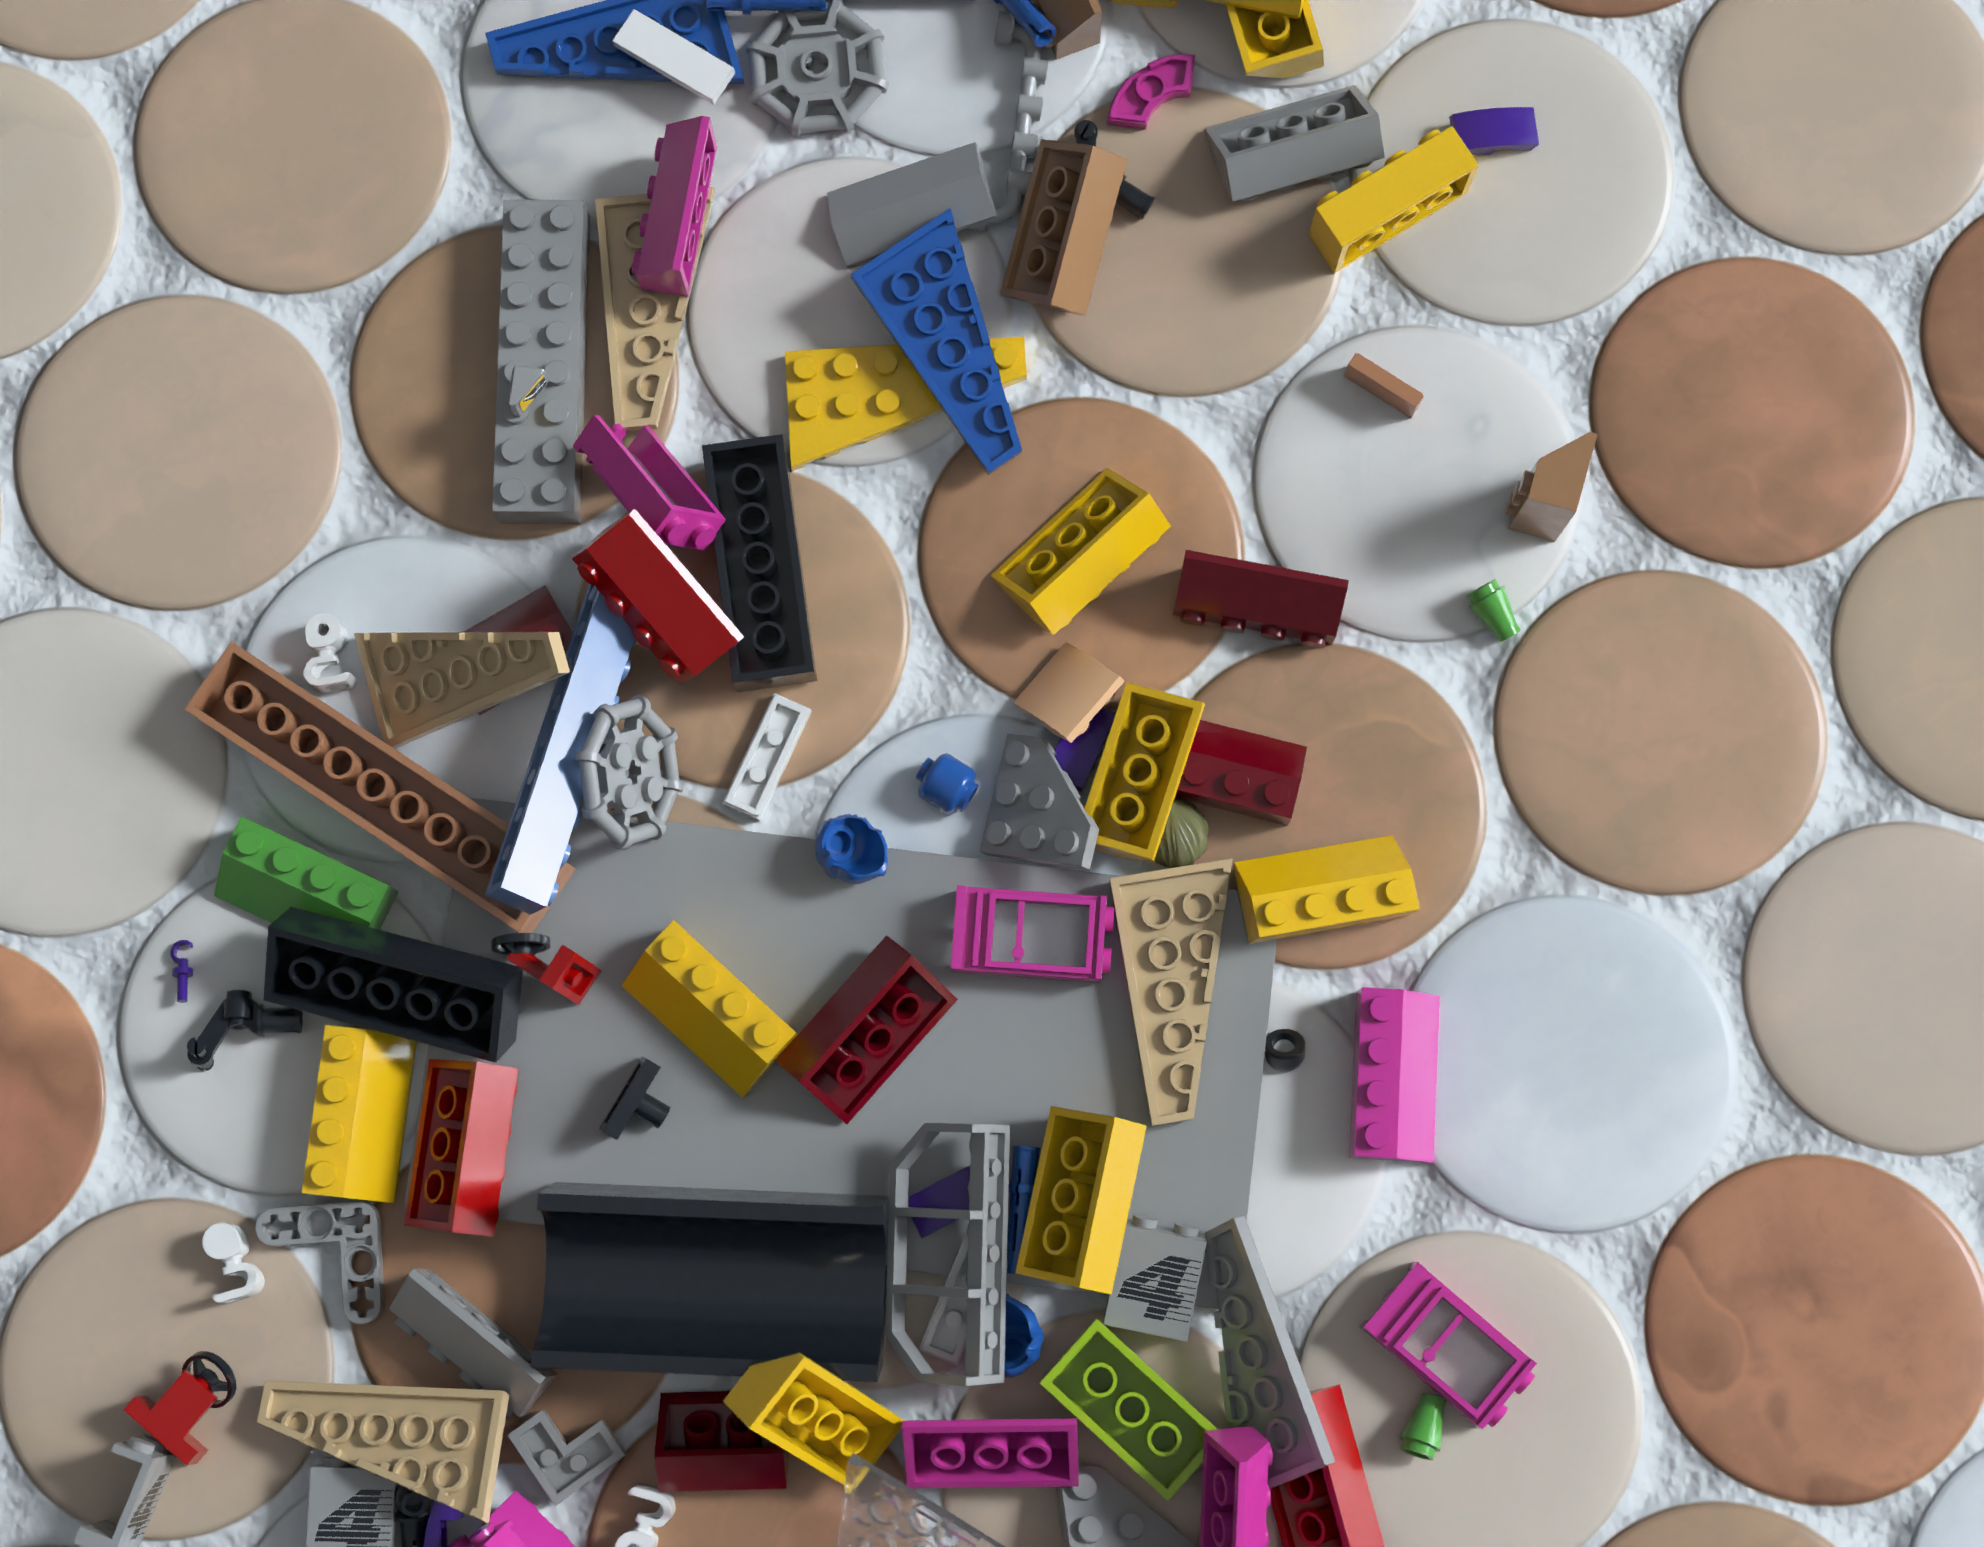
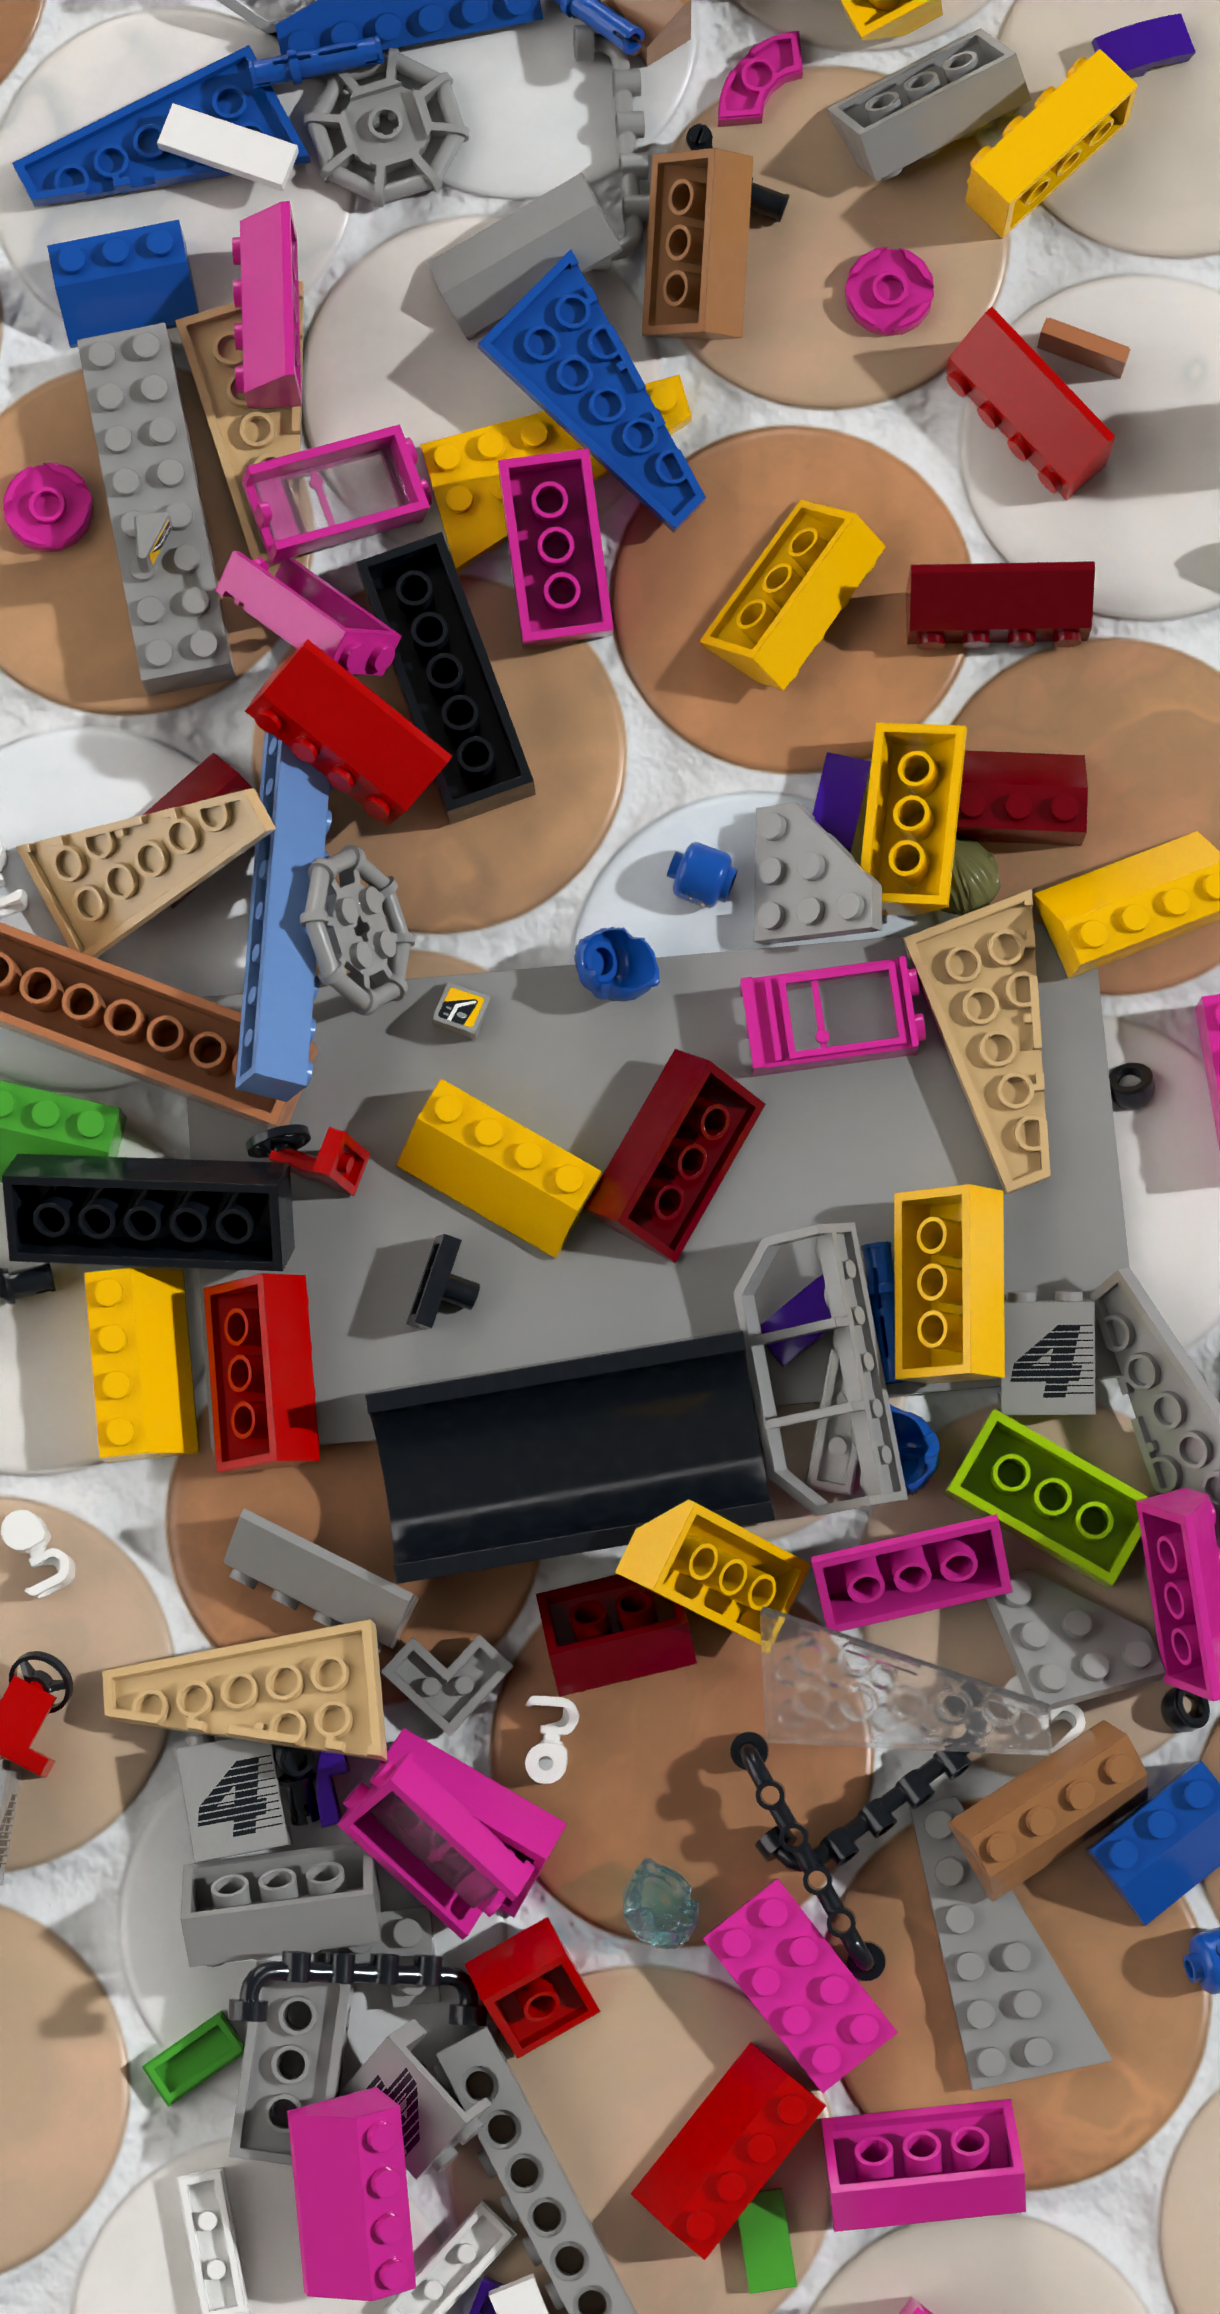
camera: 10 degrees left, 0 degrees up
(350, 1243) = (162, 1505): light grey beam -> none
(450, 340) = (48, 507): none -> dark pink tile
(558, 155) = (123, 280): none -> blue slope
(700, 380) = (336, 493): none -> door
(708, 860) = (461, 1010): none -> slope
(767, 757) = (498, 888): white tile -> none
(879, 468) = (555, 547): none -> dark pink brick
(1069, 692) = (814, 748): light nougat slope -> none
(1224, 300) = (889, 291): none -> dark pink tile
(1323, 427) = (1029, 405): none -> red slope

